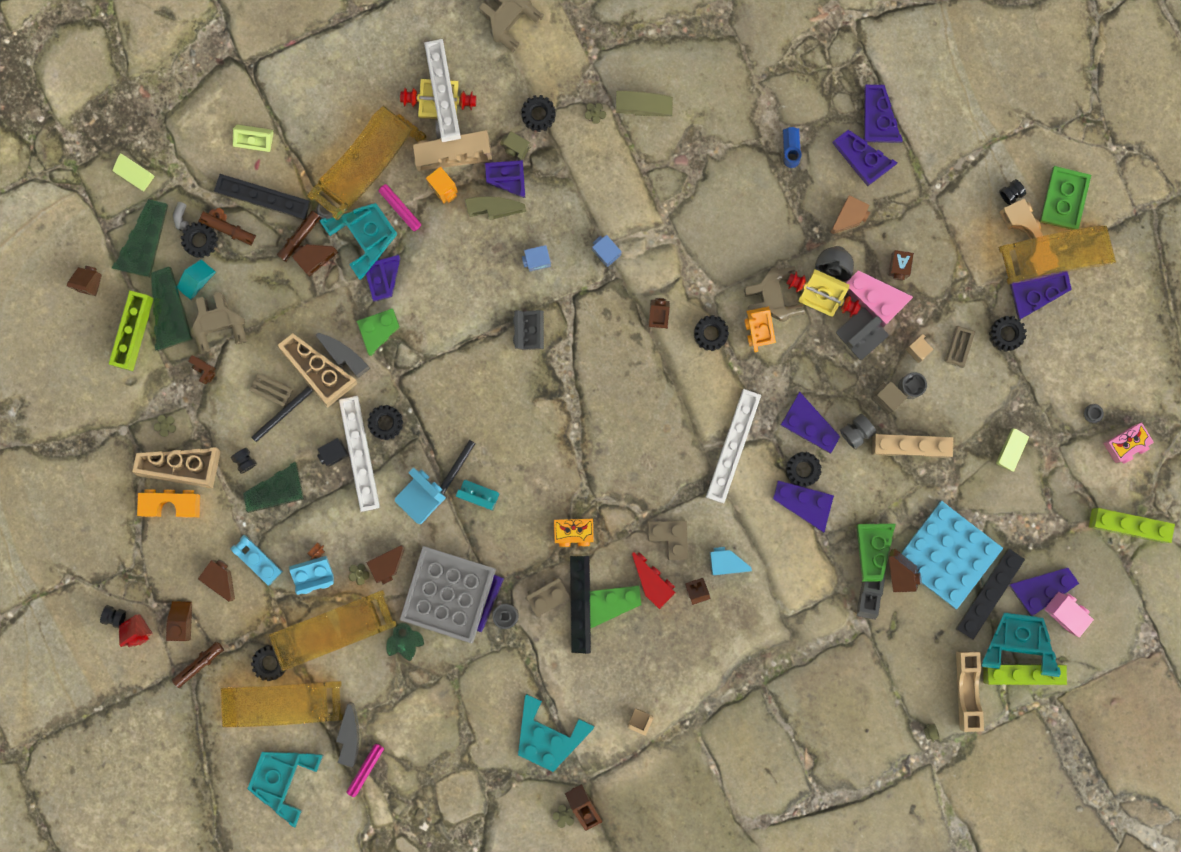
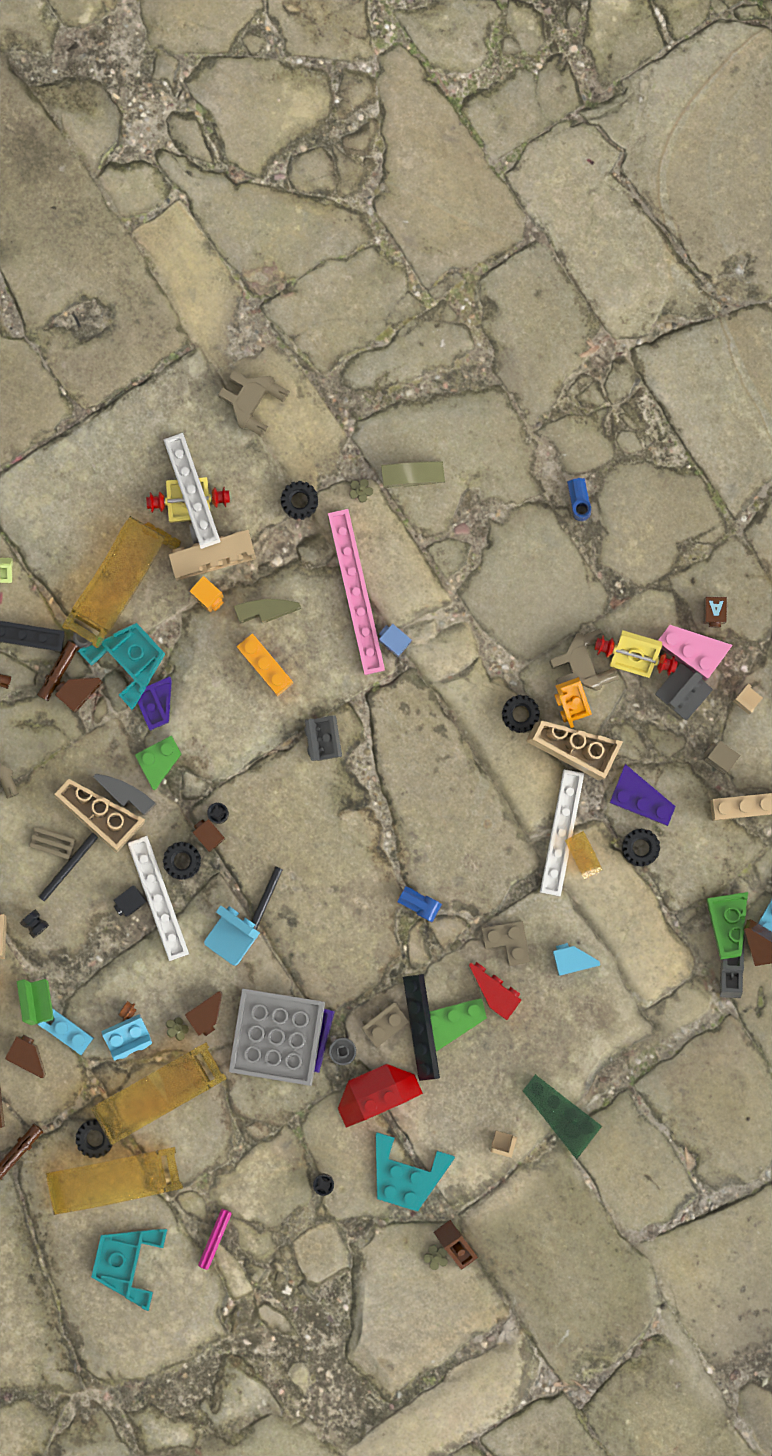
camera: 15 degrees left, 0 degrees up
(233, 531) = (35, 1001): none -> bright green panel
(276, 491) = (73, 952): clear green wing -> none
(349, 737) = (193, 1205): dark grey slope -> none
(399, 207) = (163, 624): dark pink axle -> none
(406, 644) = (238, 1097): clear green plate -> none
(412, 402) = (208, 834): none -> reddish brown brick
(424, 384) = (218, 813): none -> black wheel
(471, 735) = (322, 1187): none -> black wheel
(478, 495) = (294, 925): teal bracket -> none
(485, 256) = (264, 664): none -> light orange arch
(507, 176) = (275, 574): dark purple wing -> none
(515, 145) = (279, 539): olive brick -> none
(531, 658) = (376, 1093): none -> red wedge
(536, 258) = (320, 659): medium blue brick -> none
(573, 531) = (403, 949): brick -> none
(578, 202) = (356, 592): none -> bright pink plate
(598, 494) = (422, 905): none -> blue piece
(659, 313) = (461, 700): reddish brown bracket -> none
(697, 591) = (545, 995): reddish brown bracket -> none
(698, 704) = (565, 1118): none -> clear green wing
(750, 468) = (583, 855): none -> clear yellow slope
(757, 370) = (577, 748): none -> tan wedge
(805, 502) = (648, 883): dark purple wing -> none
(836, 263) = (644, 618): dark grey cylinder -> none
(851, 215) = (654, 564): medium nougat slope -> none
(858, 431) = (693, 798): dark grey wheel -> none
(864, 159) = (659, 501): dark purple wing -> none
(878, 116) = (669, 453): dark purple wing -> none
(913, 385) = (745, 740): dark grey wheel -> none

